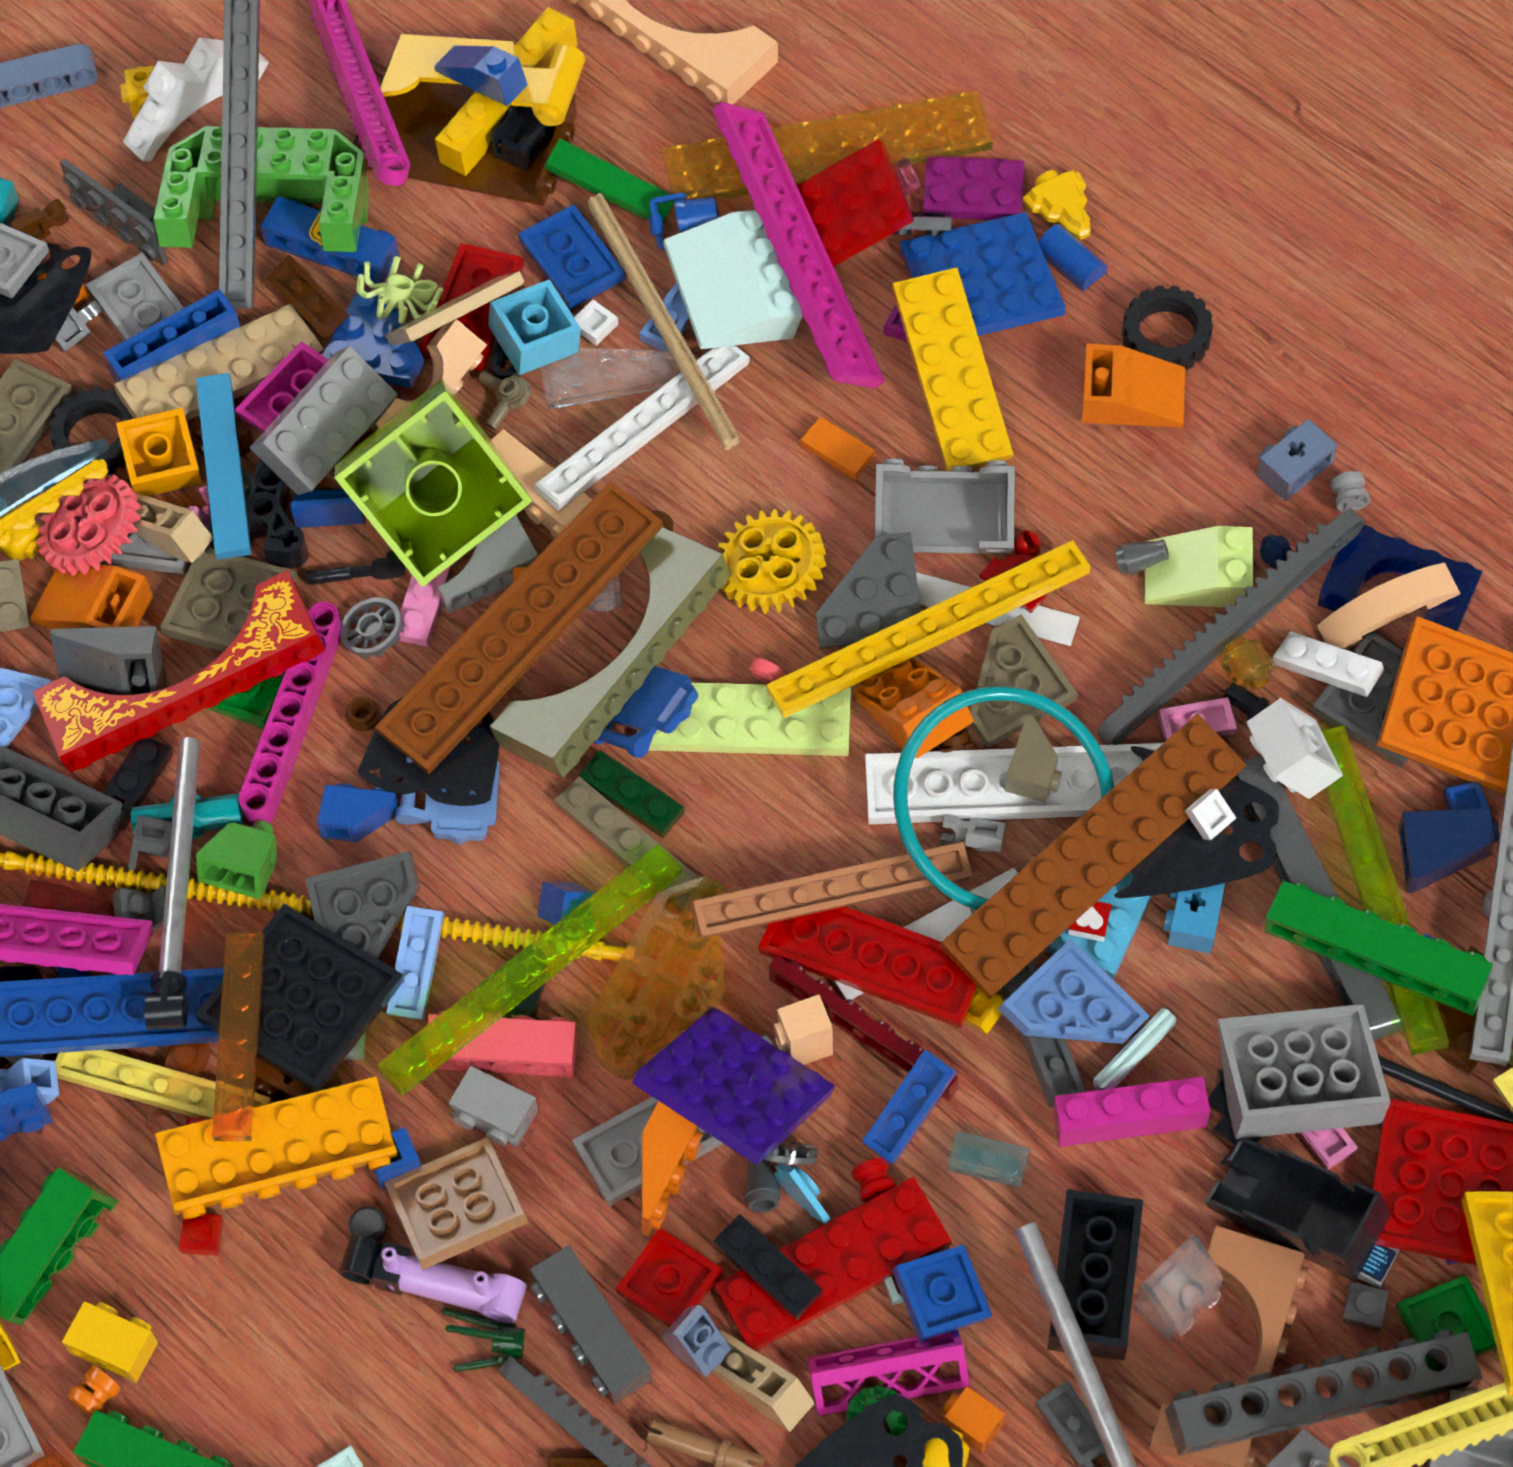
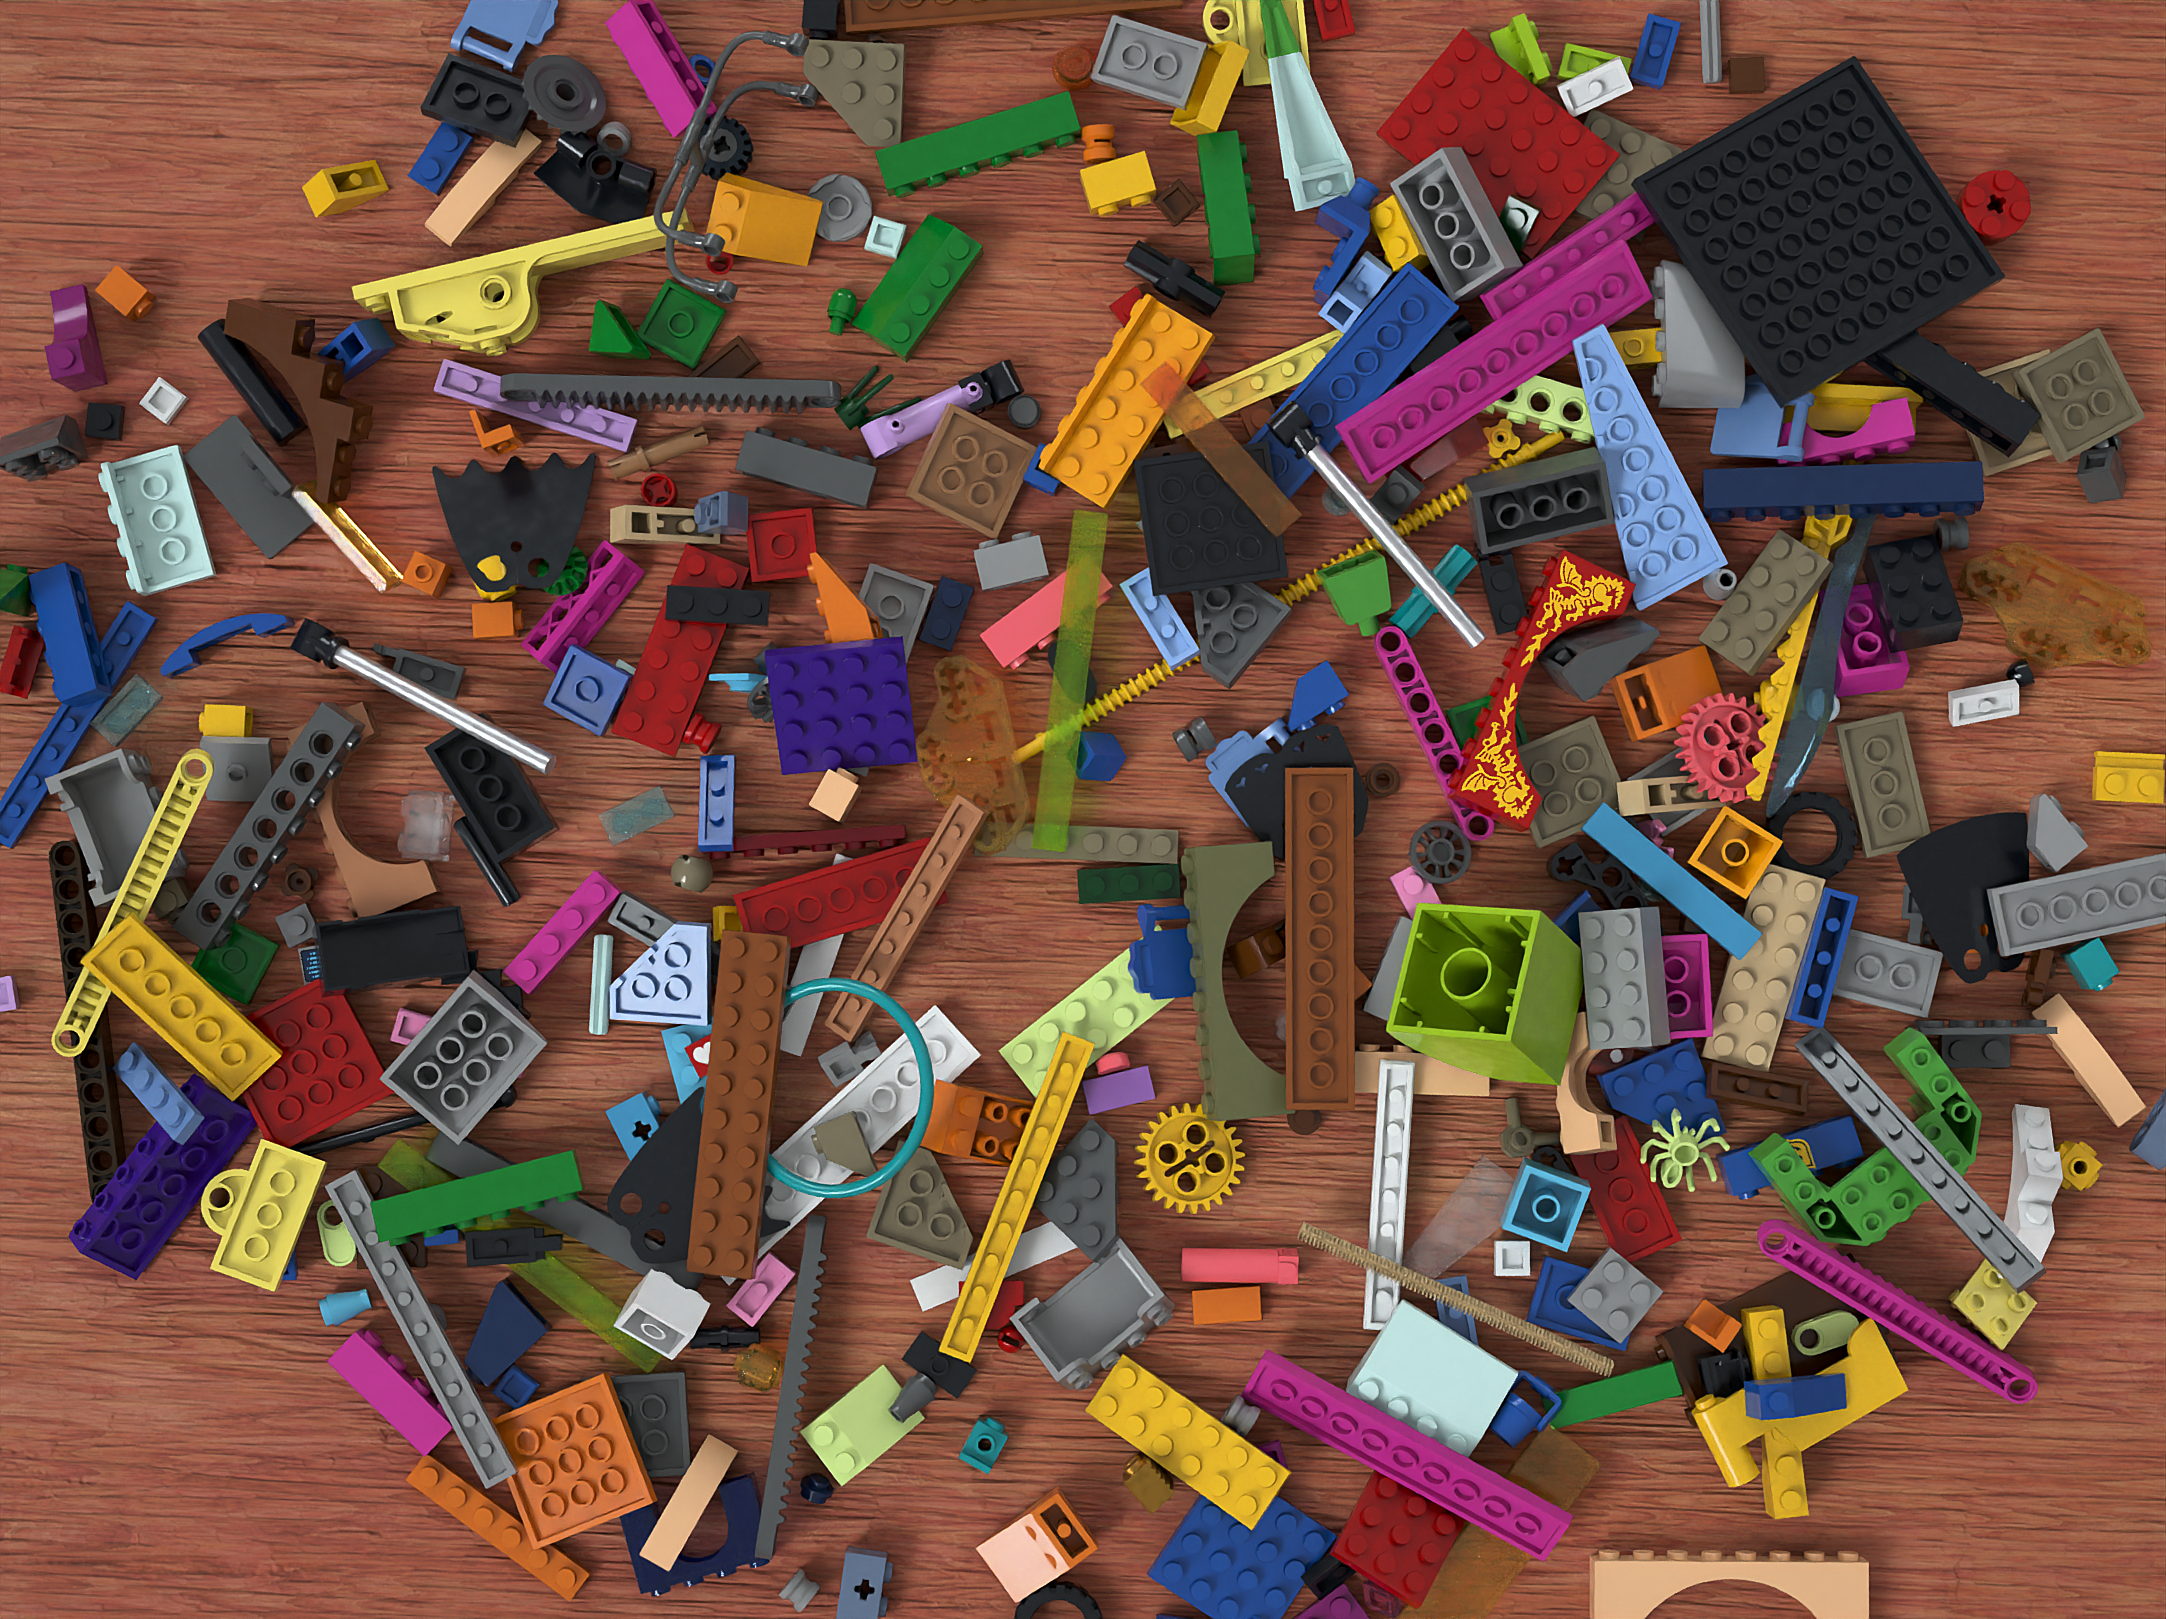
camera: 135 degrees right, 25 degrees up
(11, 892) = (1503, 429): none -> yellow plate
(63, 140) = (2090, 1062): none -> light nougat slope
(77, 1288) = (1176, 202): none -> reddish brown tile
(143, 1227) = (1174, 278): none -> black piece
(150, 838) = (1435, 545): dark grey panel -> none
(193, 947) = (1333, 503): none -> clear light blue plate
(290, 53) = (1992, 1305): none -> light yellow hinge
(355, 1401) = (918, 287): none -> green slope
(380, 569) = (1506, 878): black piece -> none
(415, 113) = (1832, 1331): none -> yellowish green piece
(438, 1440) = (841, 309): none -> green cylinder
(455, 308) = (1616, 1162): tan tile -> none
(477, 854) = (1200, 734): none -> dark grey wheel
(494, 173) = (1713, 1325): none -> orange panel
(544, 240) = (1614, 1295): none -> light grey plate
(570, 661) = (1259, 950): none -> reddish brown slope
(582, 1114) = (946, 614): none -> dark blue plate
(731, 1404) = (654, 488): none -> red wheel
(772, 441) = (1240, 1265): none -> coral piece
(778, 649) = (1118, 1089): none -> medium lavender tile
(897, 365) = (1240, 1416): none -> light grey wheel
(980, 1074) = (691, 873): none -> dark tan piece
(1008, 363) = (1147, 1482): none -> pearl gold brick
(1104, 580) = (942, 1369): none -> black plate
(1114, 486) = (973, 1454): none -> teal brick
(1151, 1225) = (493, 872): none -> black axle
(1210, 814) = (679, 1205): white plate -> none
(1328, 664) = (699, 1417): white plate -> none
(1337, 1331) = (291, 886): none -> reddish brown plate
(1381, 891) = (509, 1245): none -> black hinge

